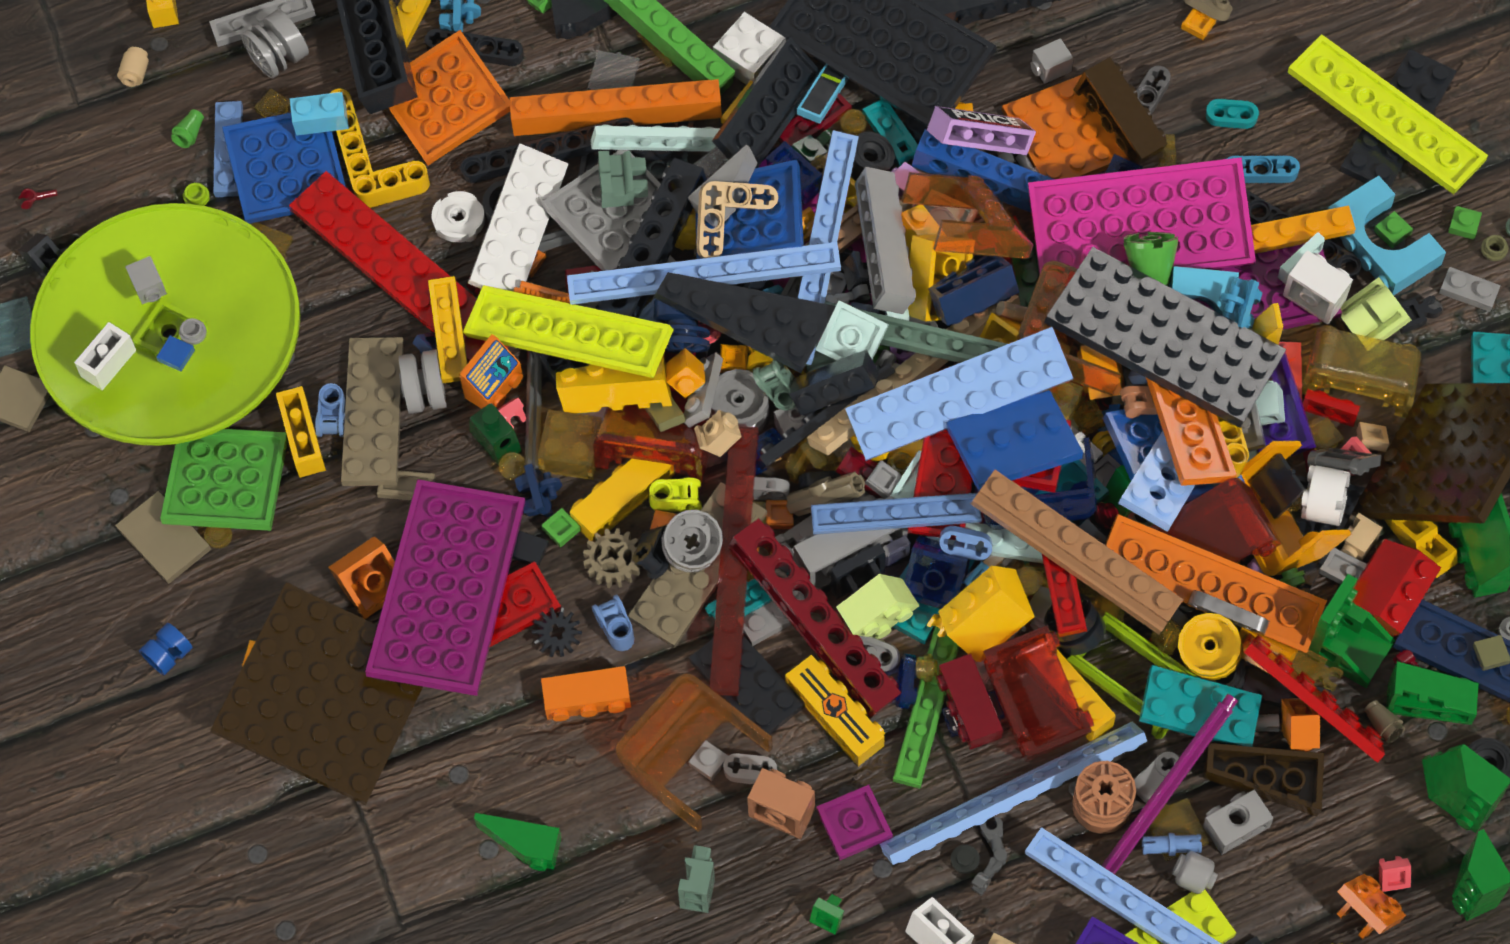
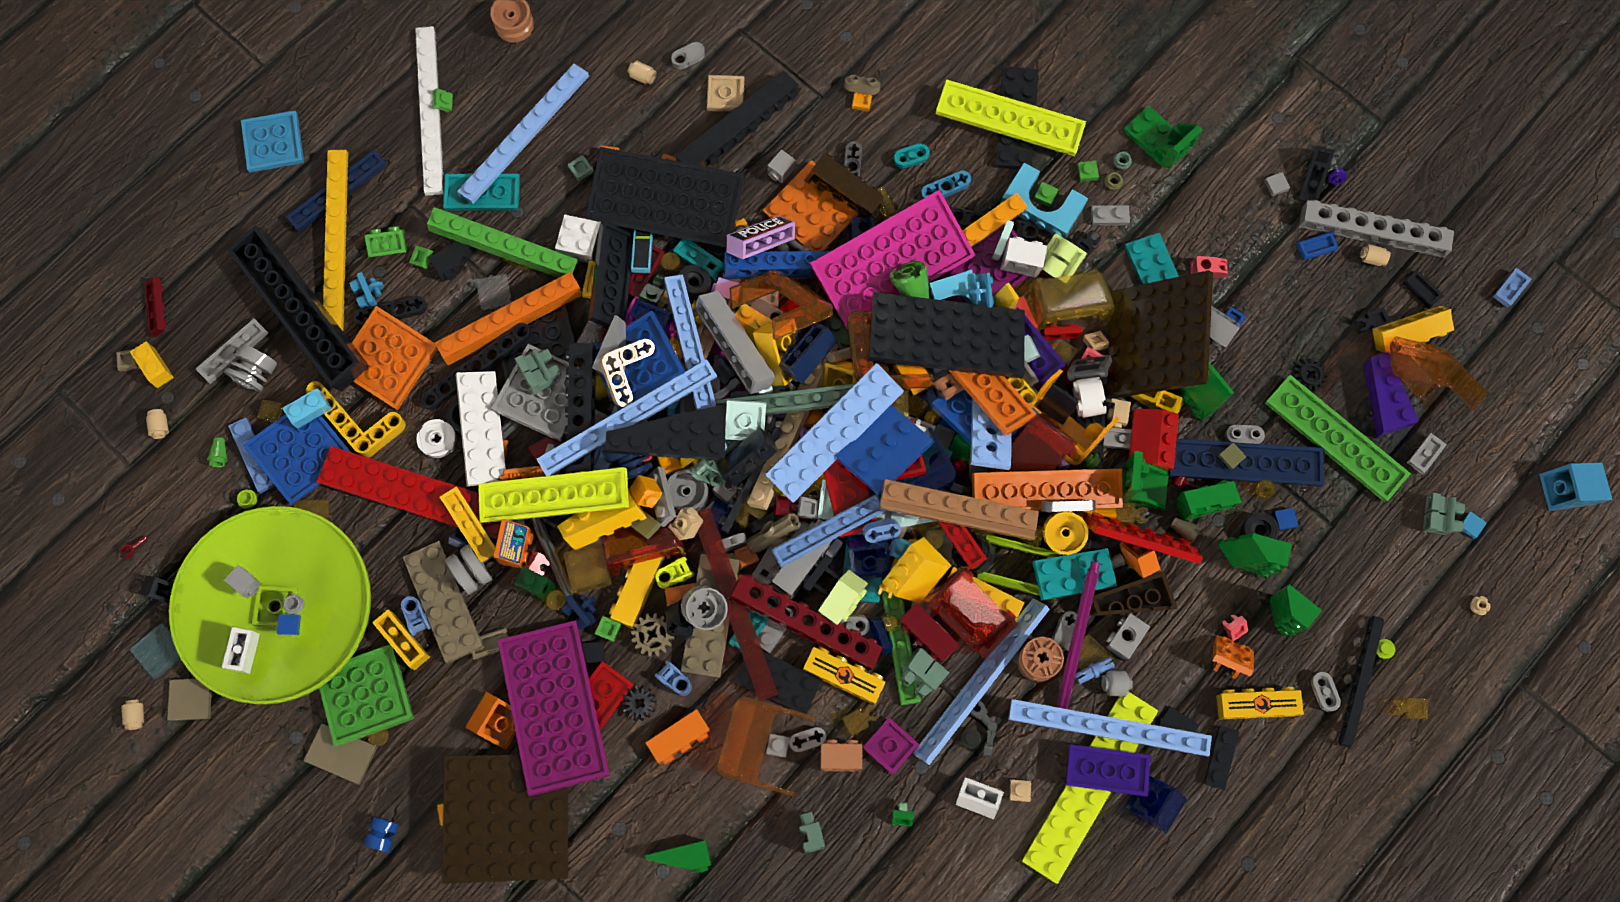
camera: 30 degrees left, 10 degrees up
(653, 138) = (546, 330): light aqua plate -> none
(825, 773) = (857, 721): none -> clear yellow plate
(939, 760) = (923, 672): none -> sand green hips

